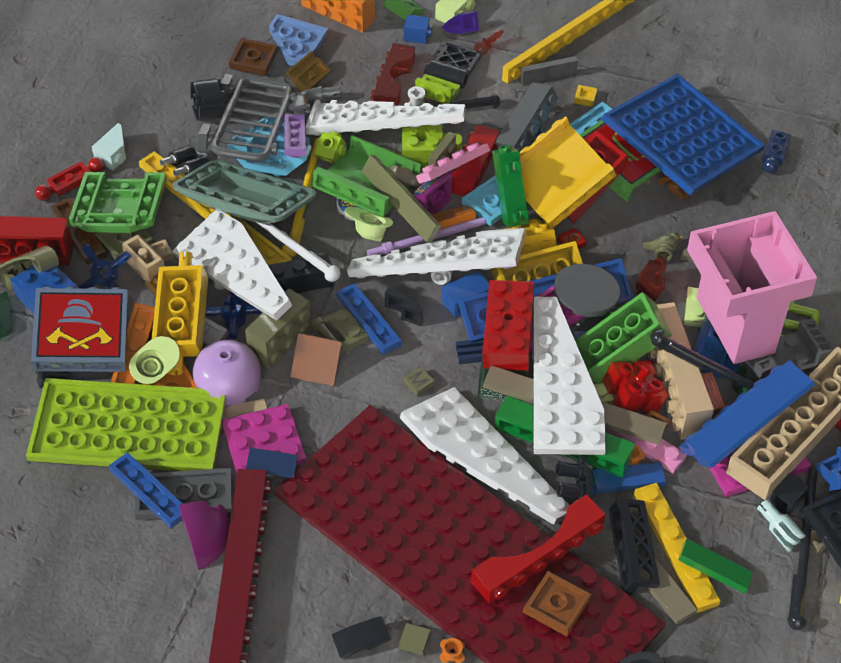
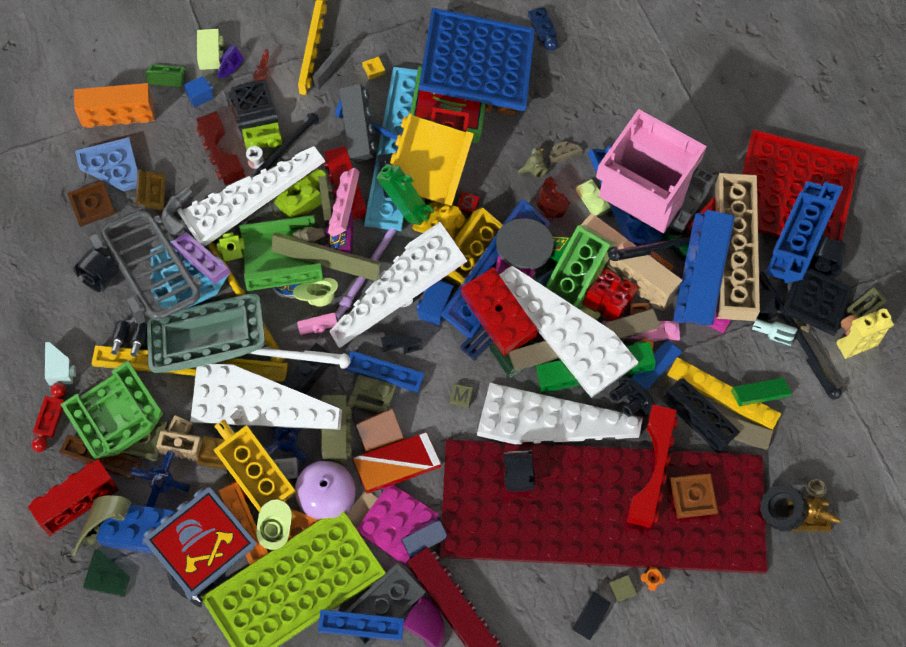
camera: 40 degrees left, 15 degrees up
(308, 392) = (396, 462): none -> tile
(345, 246) = (317, 324): none -> bright pink plate
(405, 463) = (519, 471): none -> black brick
(455, 216) = (370, 242): orange tile -> none

